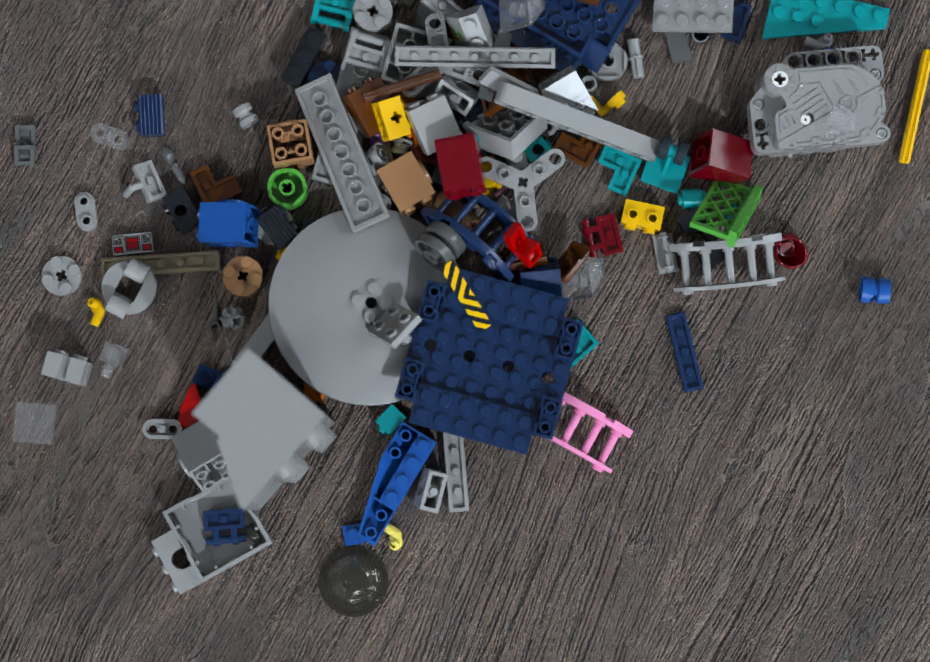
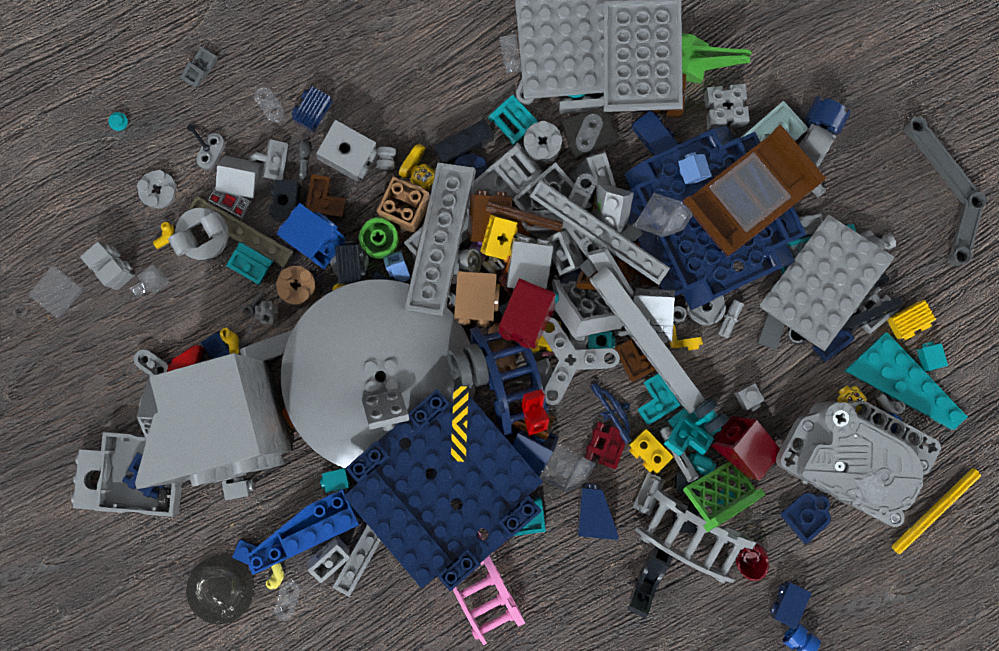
camera: 40 degrees right, 0 degrees up
(54, 202) = (191, 128): none -> black hinge
(126, 217) = (237, 176): none -> light grey slope
(188, 285) = (249, 263): none -> teal plate
(216, 361) = (231, 339): none -> yellow arm
(220, 124) = (355, 161): none -> light grey brick
(269, 103) = (411, 160): none -> yellow tile
(289, 110) = (423, 176): none -> yellow head
(311, 483) = (238, 488): none -> light grey brick
(319, 202) = (397, 266): none -> medium blue brick
(418, 549) = (287, 599): none -> clear plate
(564, 195) = (625, 434): none -> dark blue piece
(572, 260) = (568, 450): reddish brown slope -> none
(630, 299) = (594, 514): none -> dark blue slope
(649, 193) = (689, 473): none -> light grey pin
(663, 179) = (686, 433): none -> teal plate
(684, 352) = (610, 585): dark blue tile -> none
(696, 114) = (749, 397): none -> light grey brick
(713, 324) = (648, 580): none -> black arch
(780, 52) = (851, 394): none -> yellow head
(811, 182) = (807, 516): none -> dark blue plate
(844, 265) = (790, 604): none -> dark blue brick

